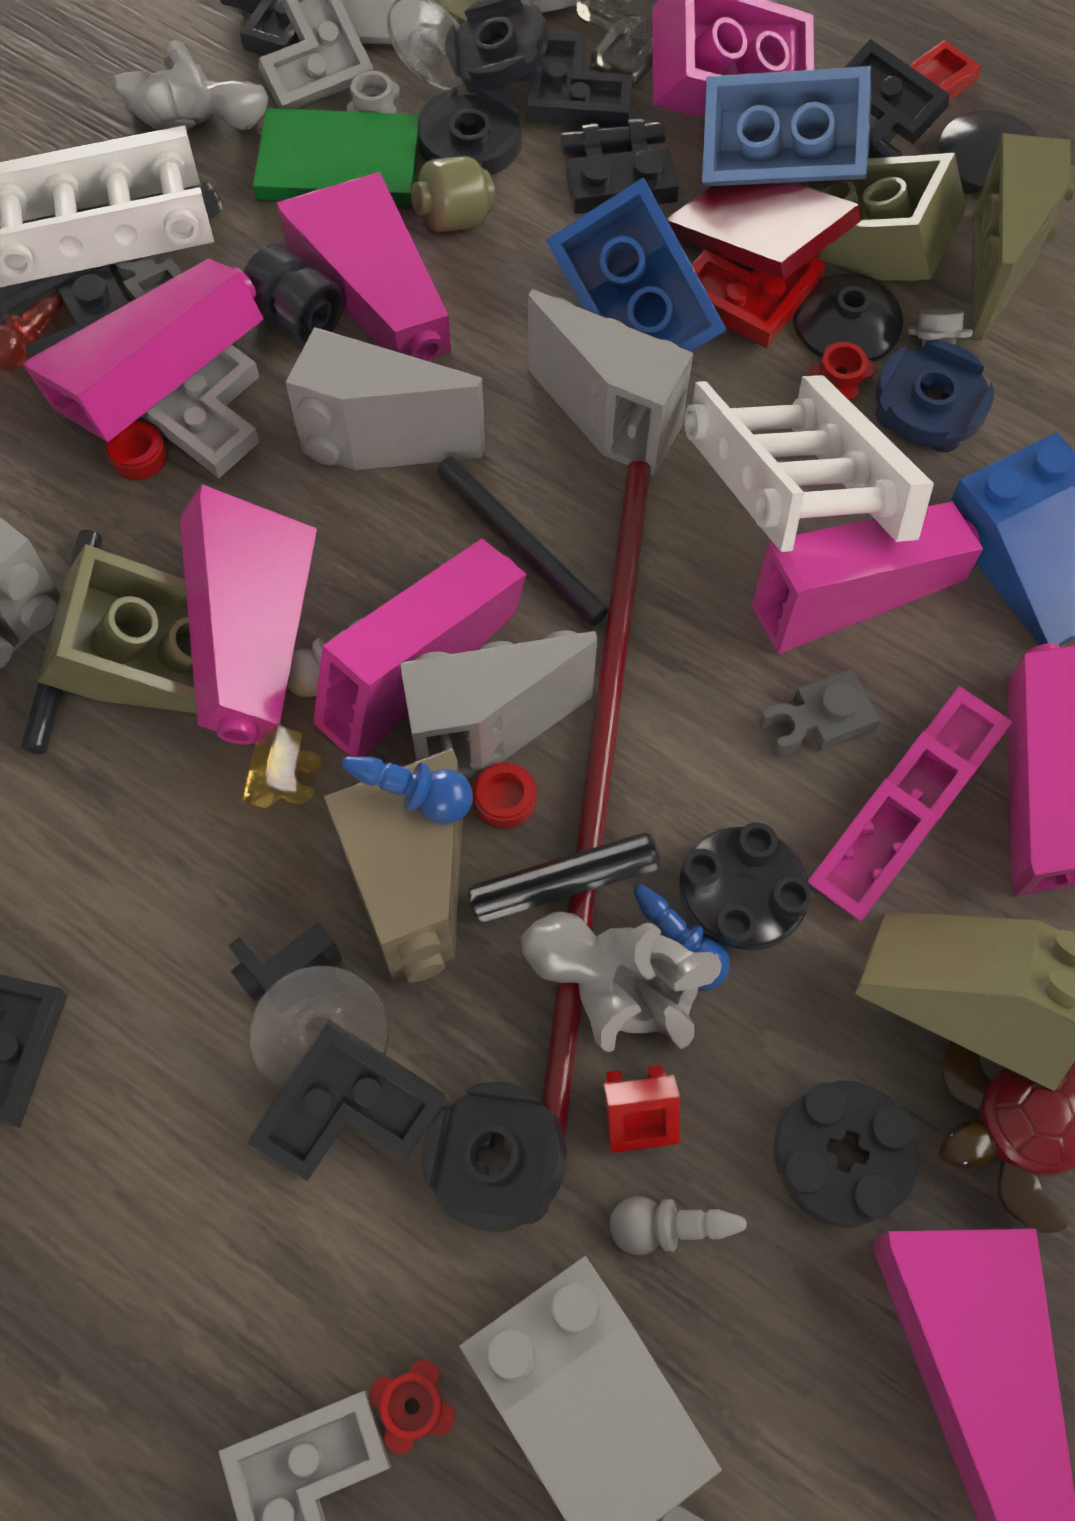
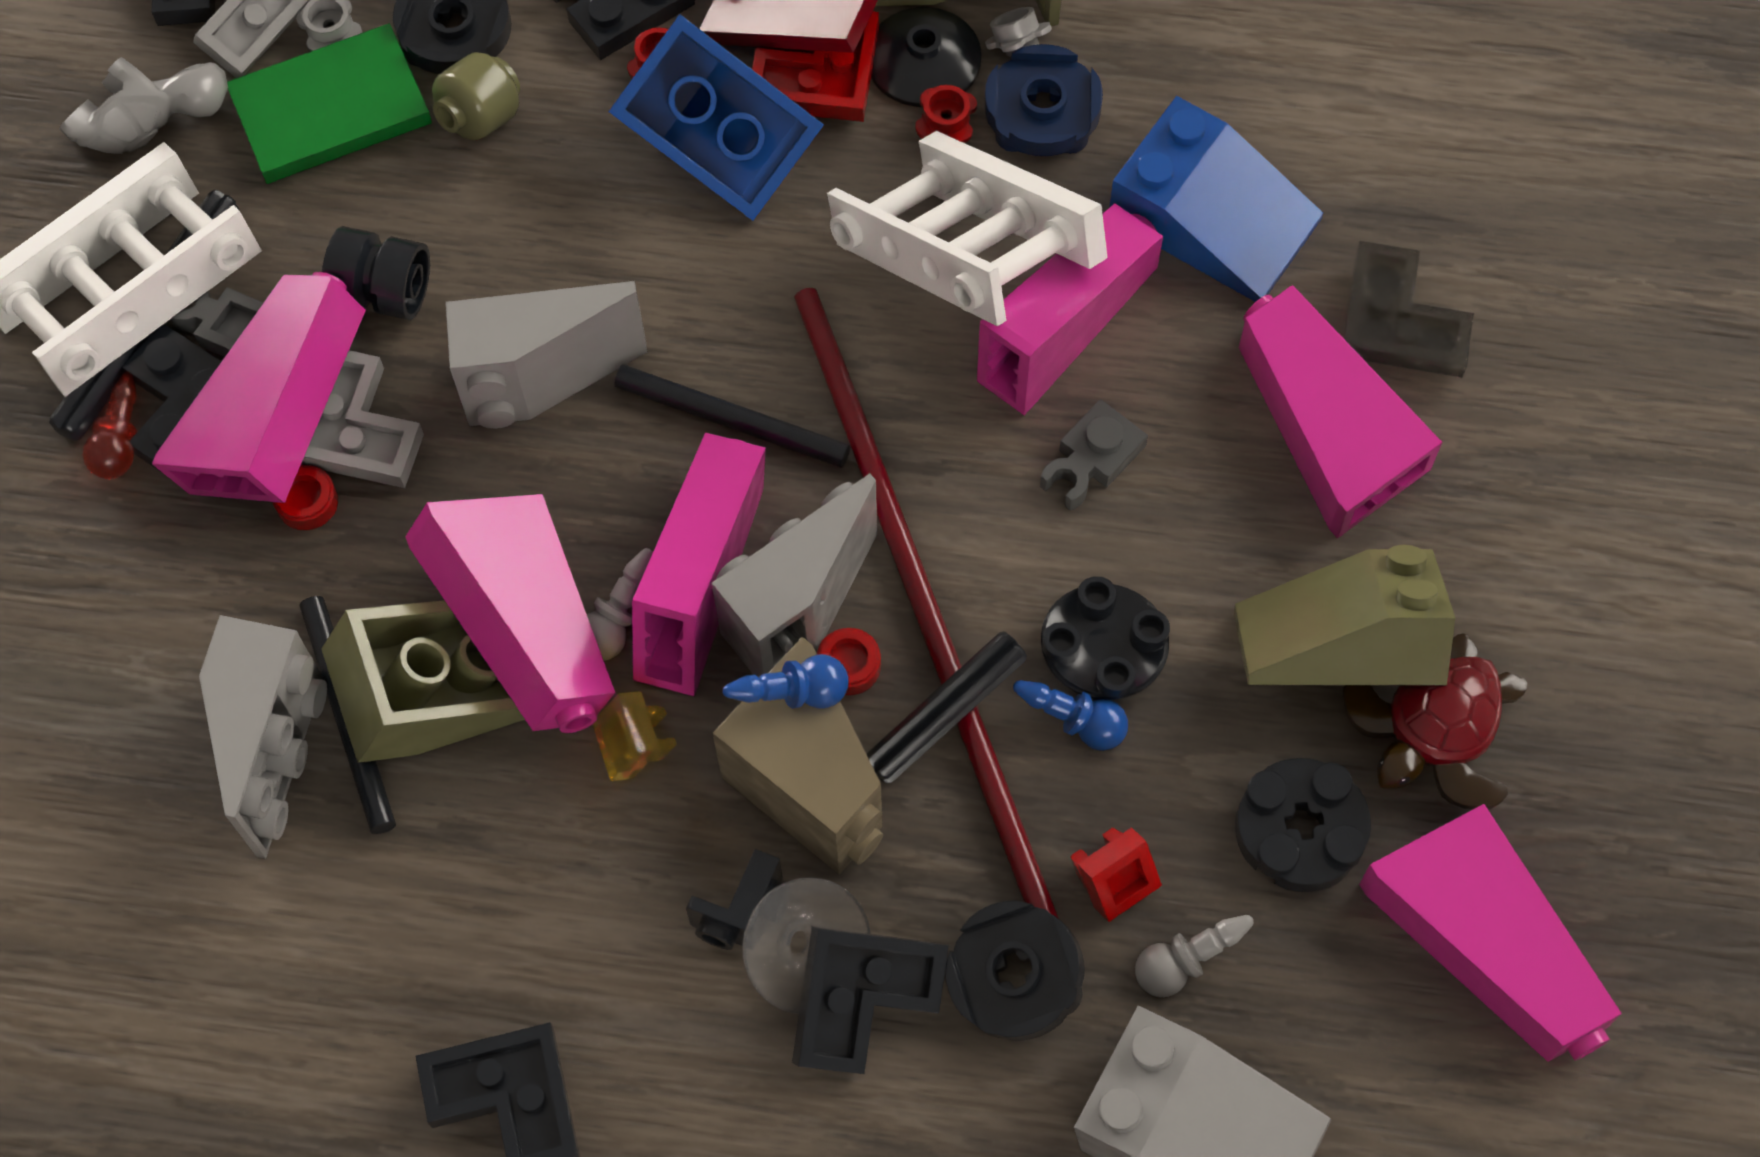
camera: 25 degrees left, 0 degrees up
(364, 247) = (421, 191): dark pink slope -> none
(609, 379) = (737, 224): light grey slope -> none
(624, 975) = (1044, 765): light grey animal -> none
(909, 803) = (1210, 498): dark pink slope -> none

